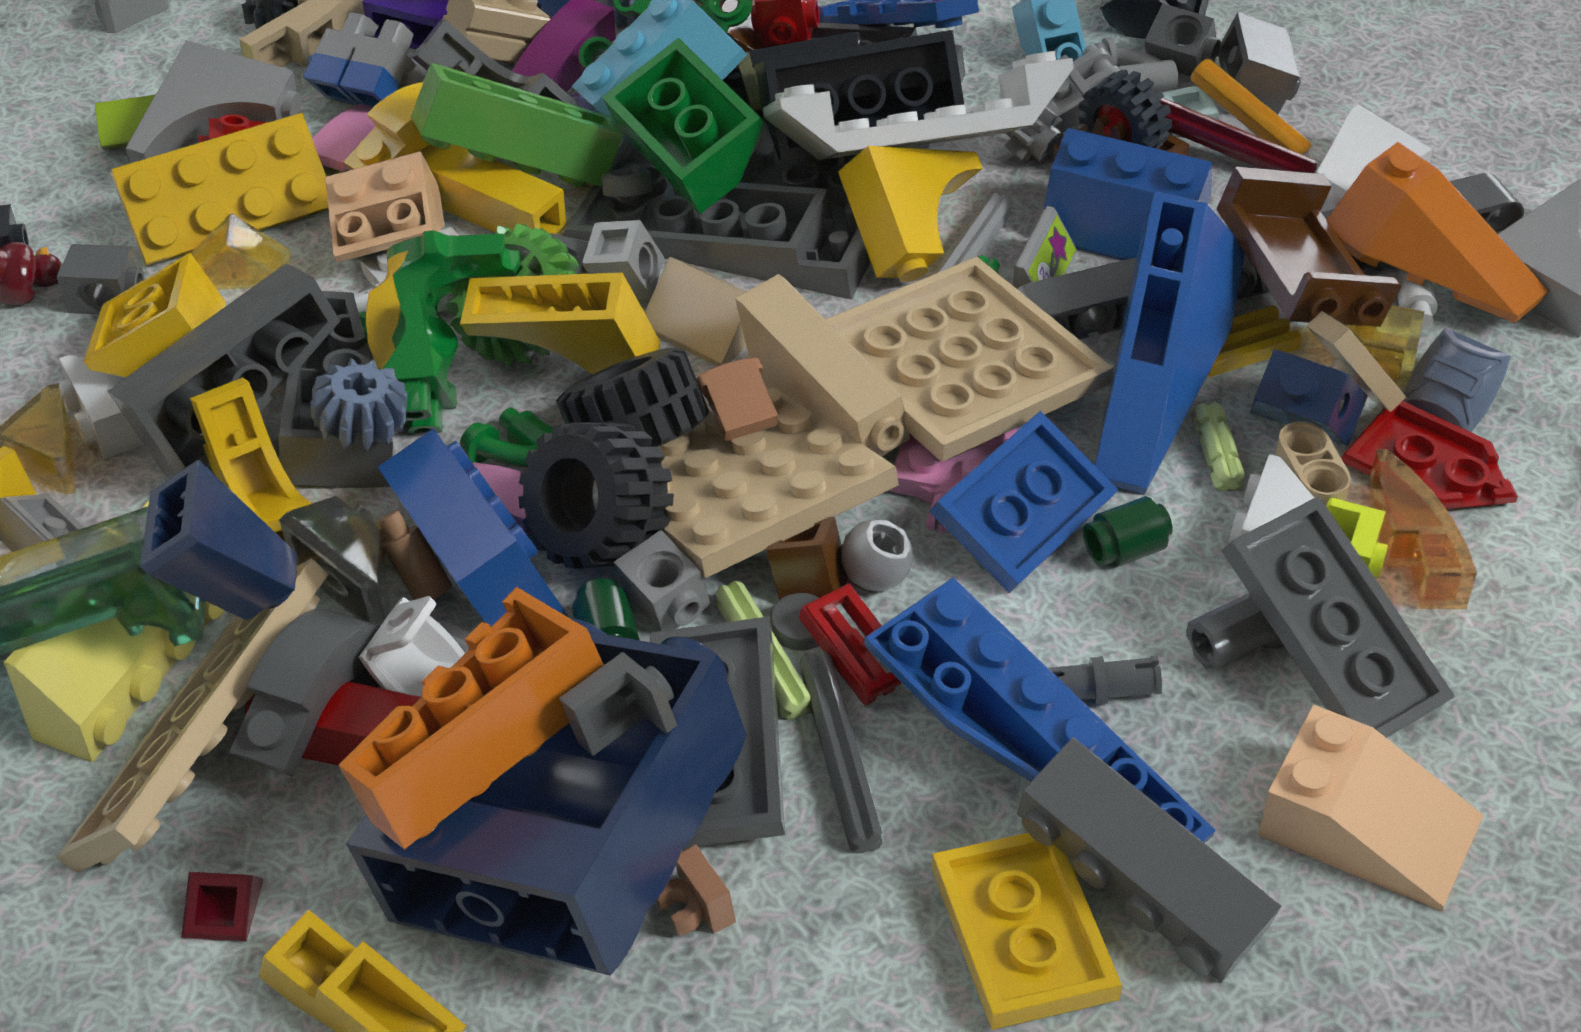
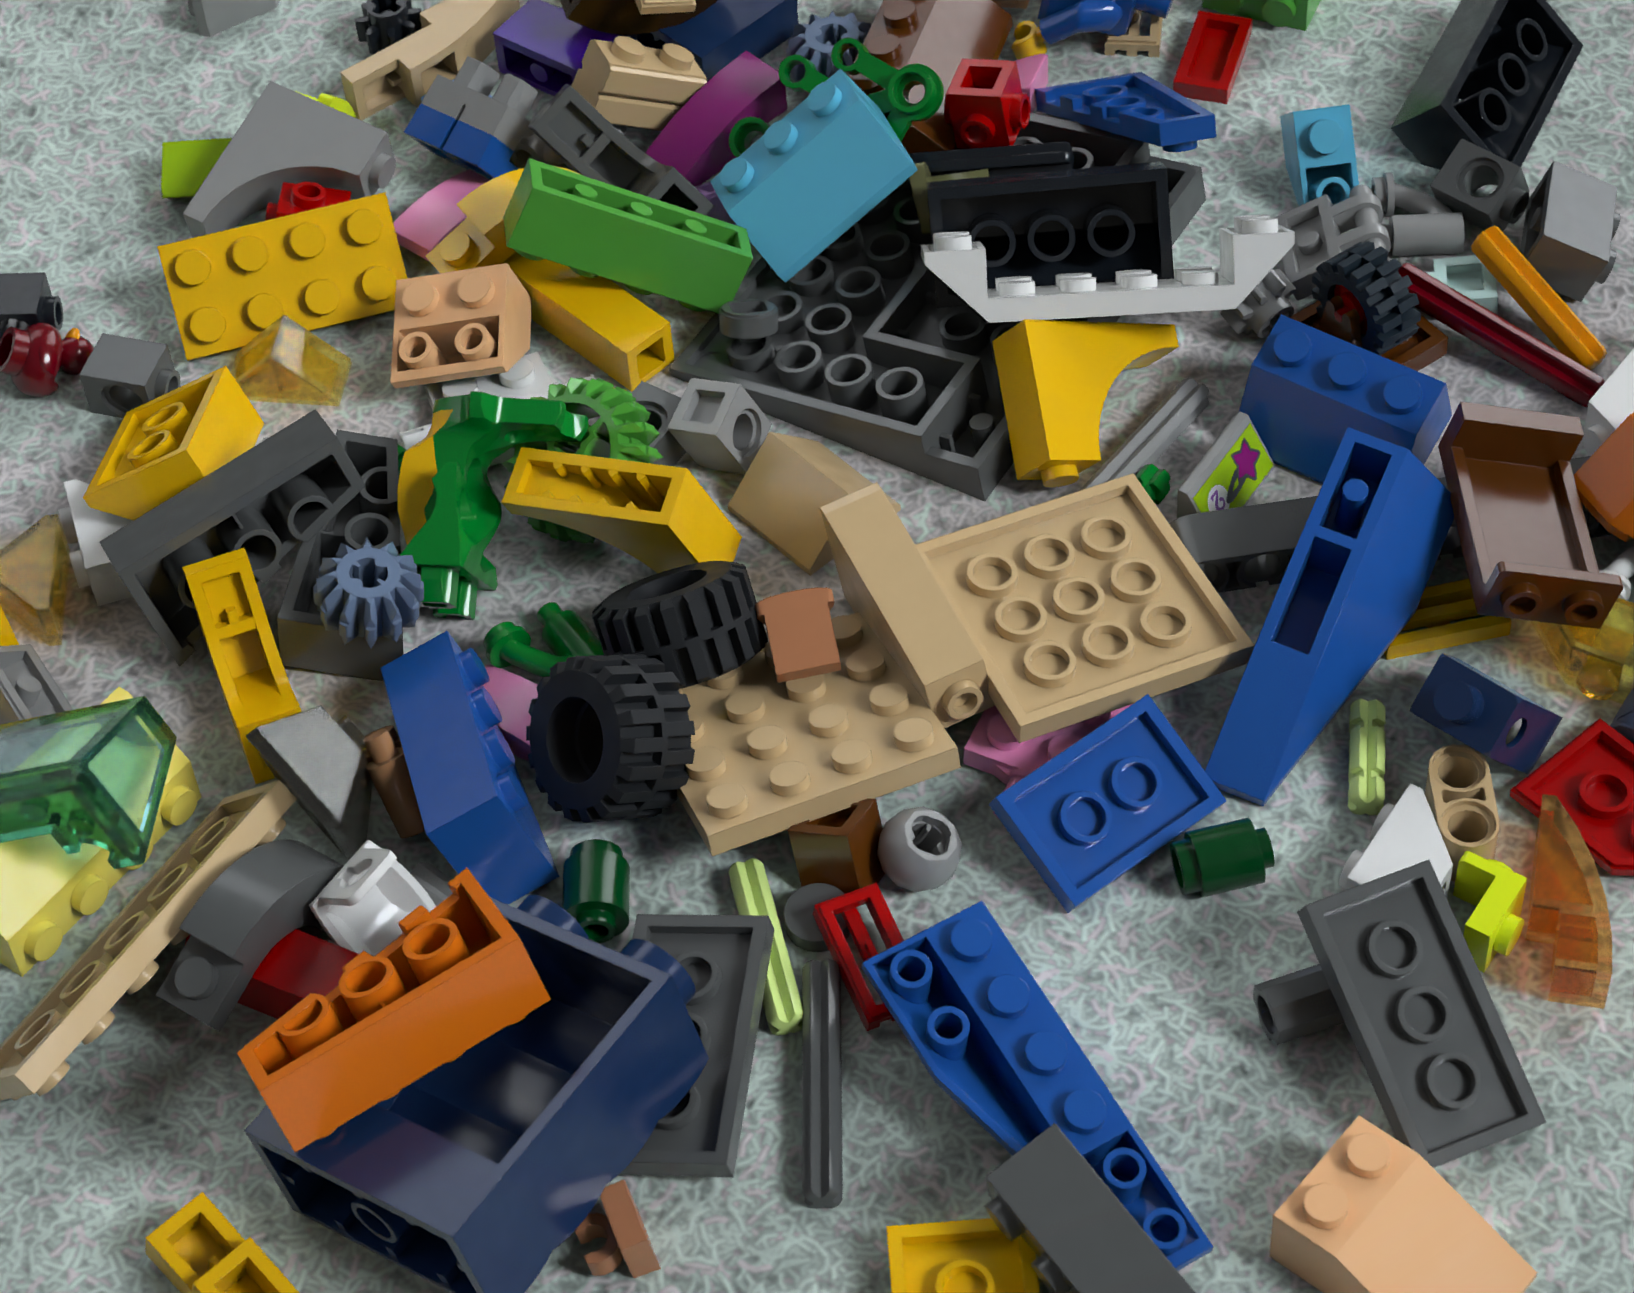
camera: 15 degrees right, 5 degrees up
(215, 545) = (164, 766): dark blue slope -> none
(220, 905) = (122, 1165): dark red slope -> none
(617, 700) = (542, 1020): dark grey bracket -> none
(663, 582) = (662, 831): light grey brick -> none
(686, 124) = (822, 259): green slope -> none
(1111, 679) = (1140, 1040): dark grey pin -> none
(1355, 360) = (1548, 676): tan plate -> none

